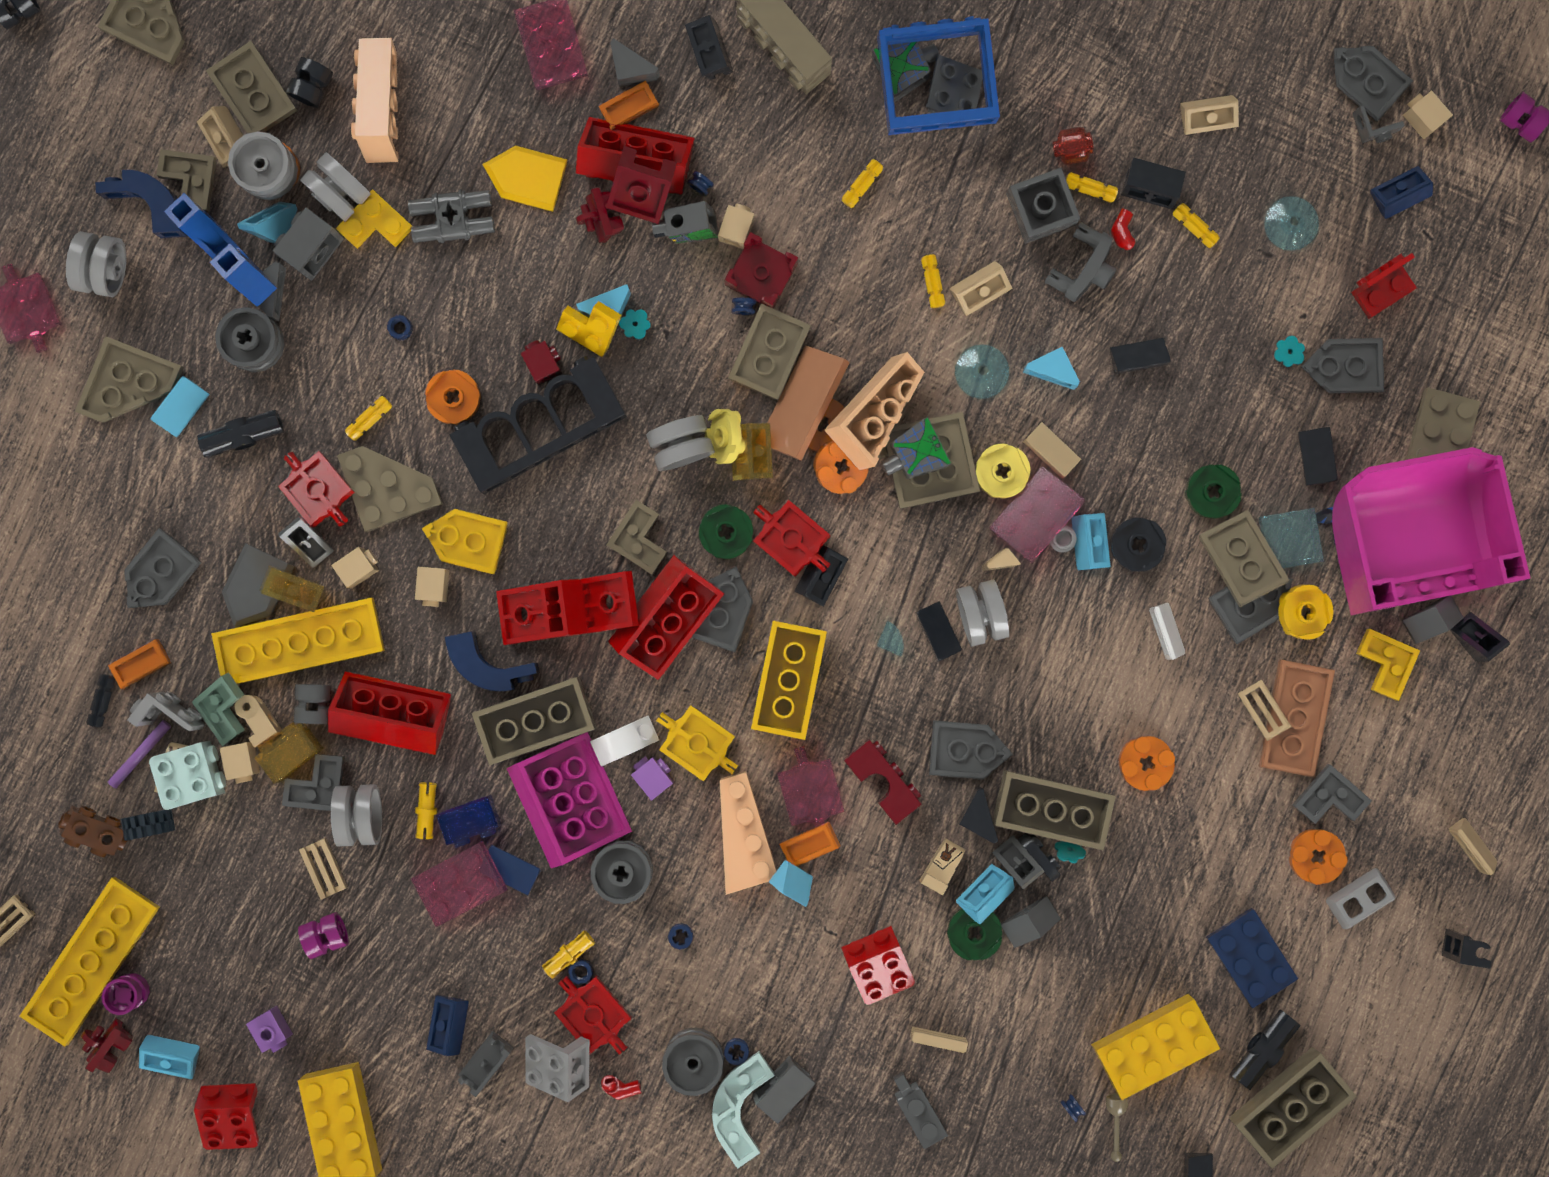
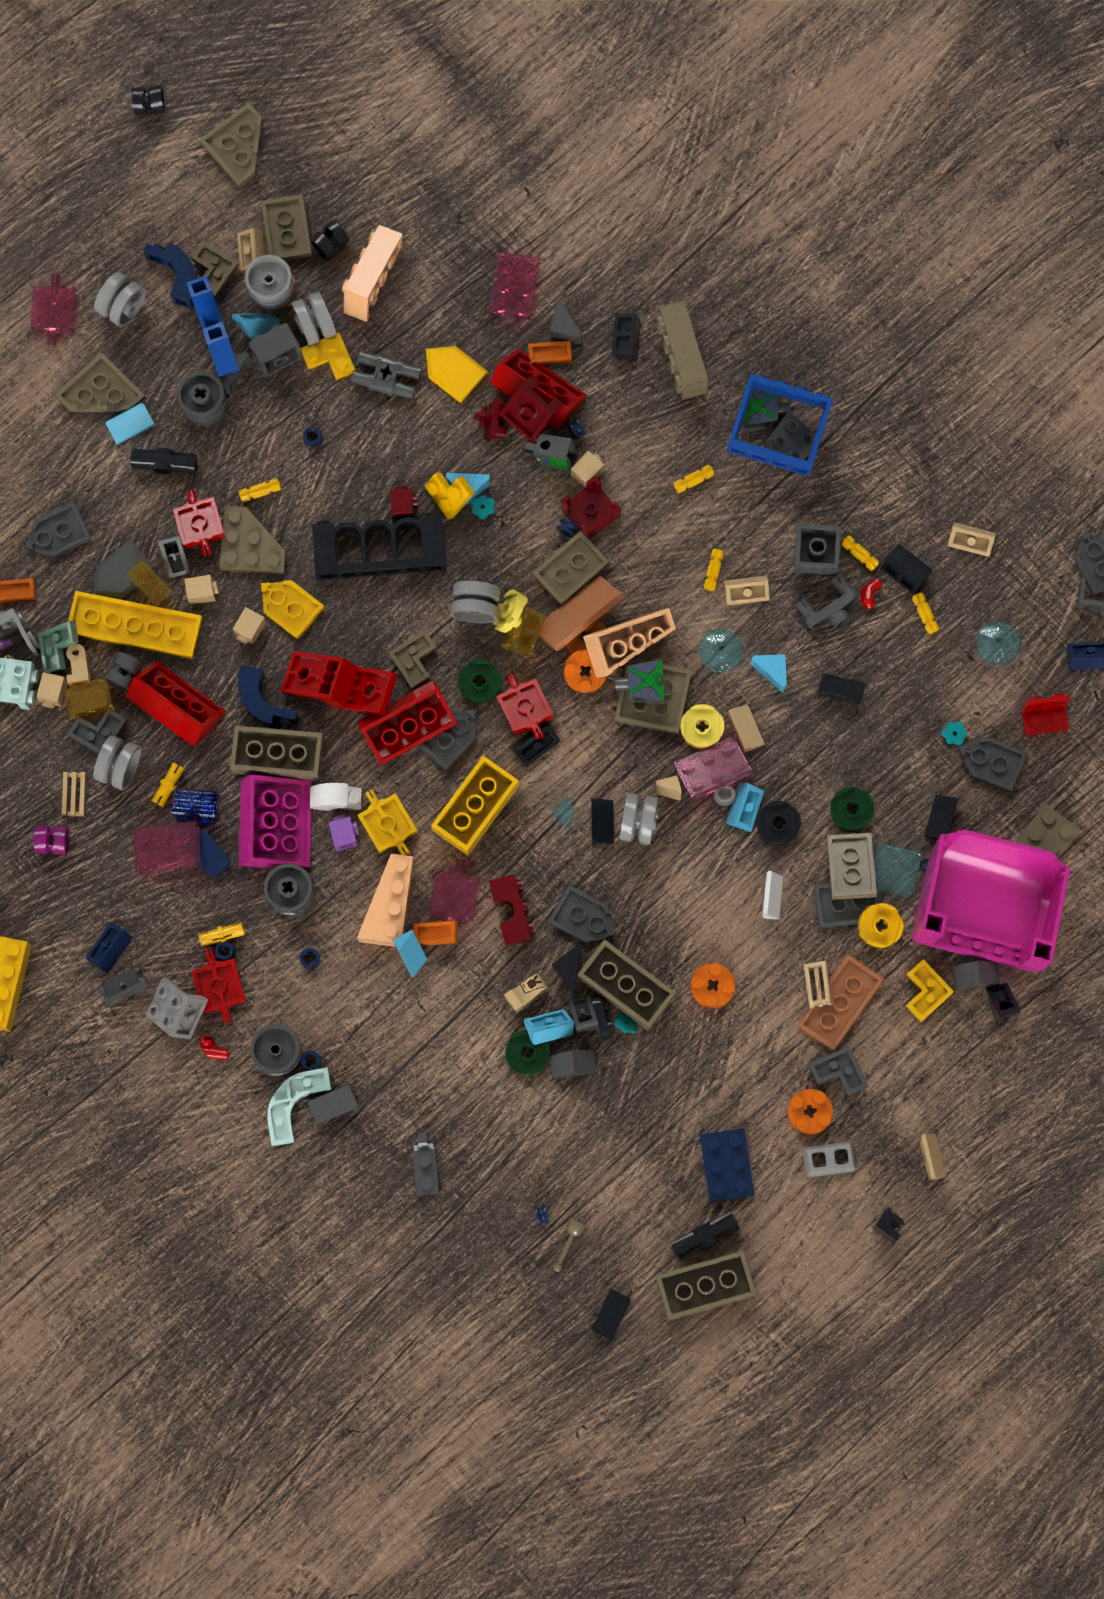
camera: 25 degrees right, 10 degrees down
(468, 396) = (331, 489): orange plate -> none
(878, 965) = (444, 1045): red bracket -> none
(939, 1039) = (464, 1118): tan tile -> none
(1073, 145) = (860, 517): clear red head -> none
(1155, 1046) = (623, 1195): yellow brick -> none

